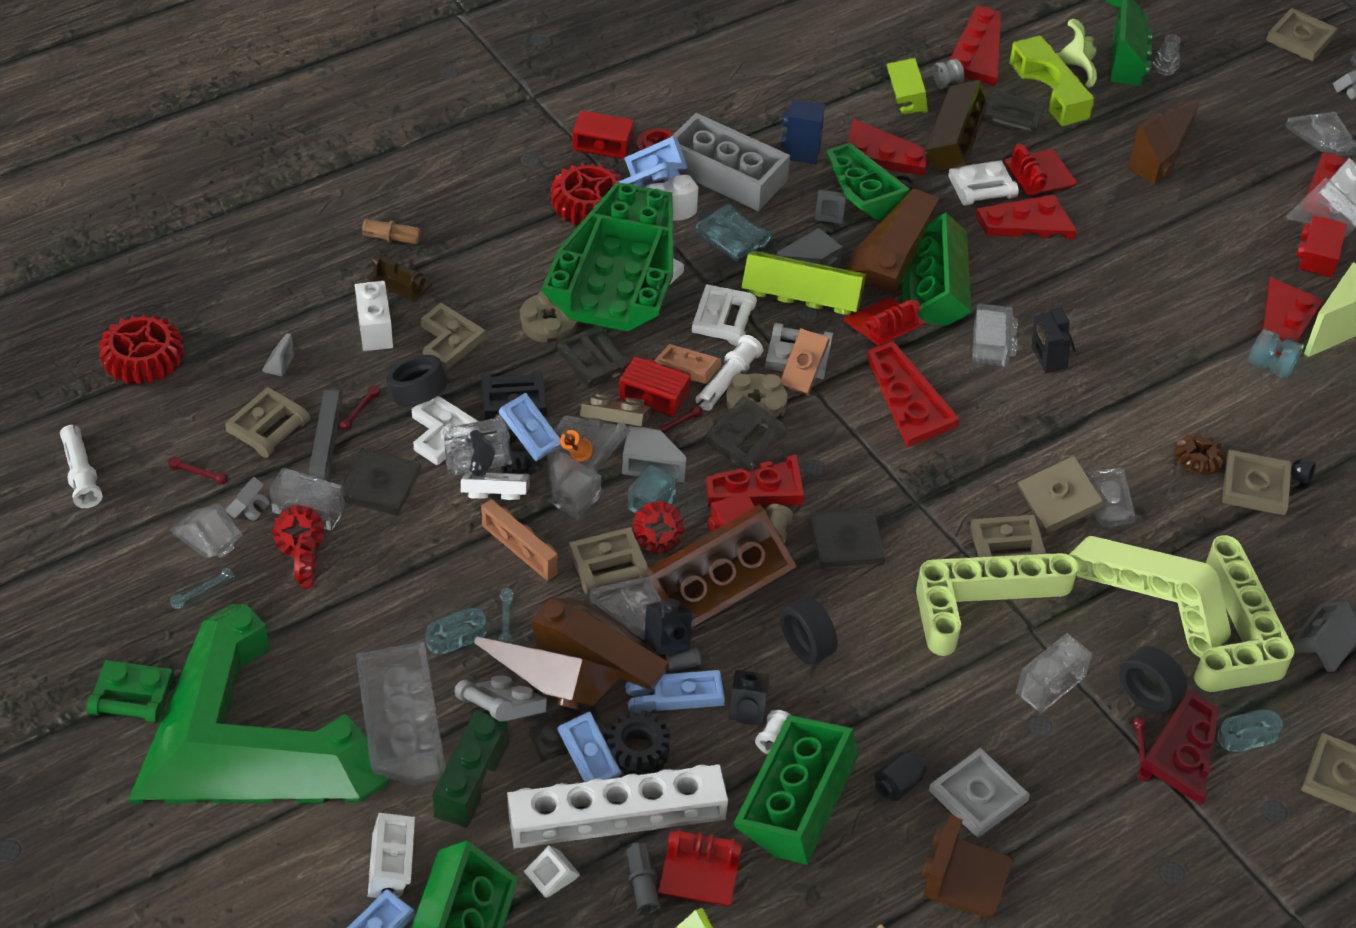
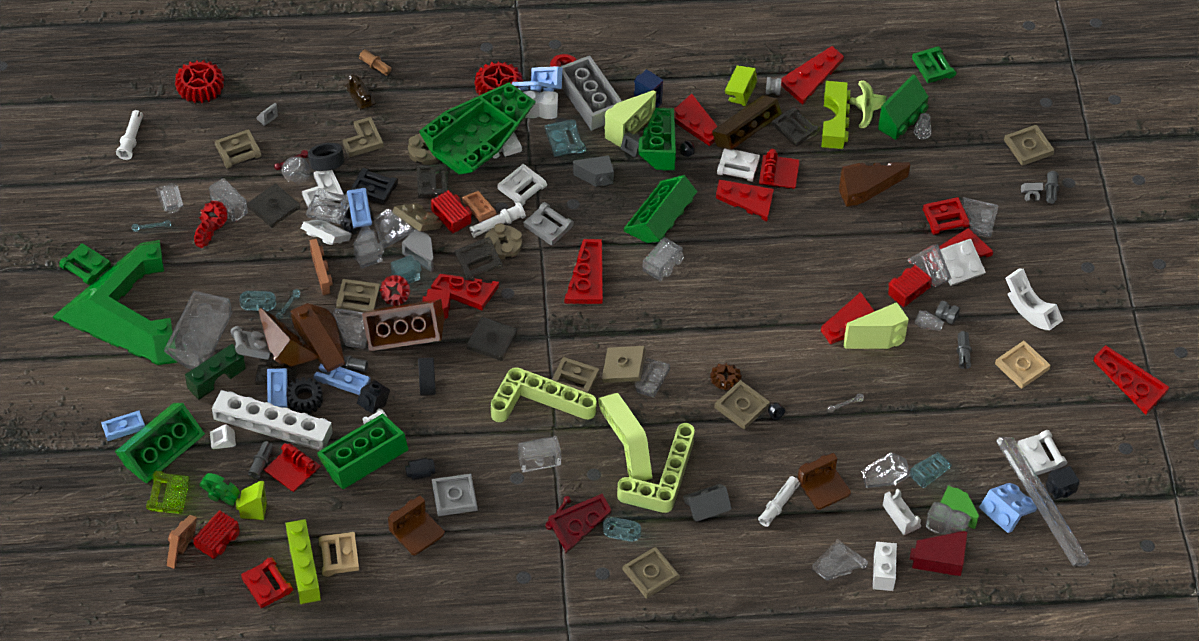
camera: 30 degrees right, 5 degrees up
(175, 464) = (179, 152): dark red hinge -> none
(246, 499) = (198, 187): light grey tile -> none
(326, 434) = (260, 169): dark grey beam -> none
(373, 315) = (330, 110): white brick -> none
(379, 416) = (296, 170): none -> clear hair
(391, 854) = (150, 394): white hinge -> none
(482, 455) = (325, 212): black arm -> none
(579, 448) = (382, 231): orange pin -> none
(603, 134) = (535, 47): red brick -> none
(668, 626) = (355, 343): black brick -> none
(696, 411) = (434, 238): dark red hinge -> none
(780, 517) = (457, 315): dark tan bush -> none
(803, 175) = (629, 116): none -> yellowish green slope
(803, 281) = (577, 184): lime brick -> none
(804, 361) = (541, 231): nougat plate -> none
(886, 320) = (608, 226): red hinge -> none
(894, 241) = (643, 184): reddish brown wedge -> none
(1052, 340) = (689, 276): black piece -> none
(1165, 671) = (584, 479): black tyre -> none
(1265, 349) = (817, 337): clear light blue wheel -> none
(1280, 140) = (945, 210): none -> red plate

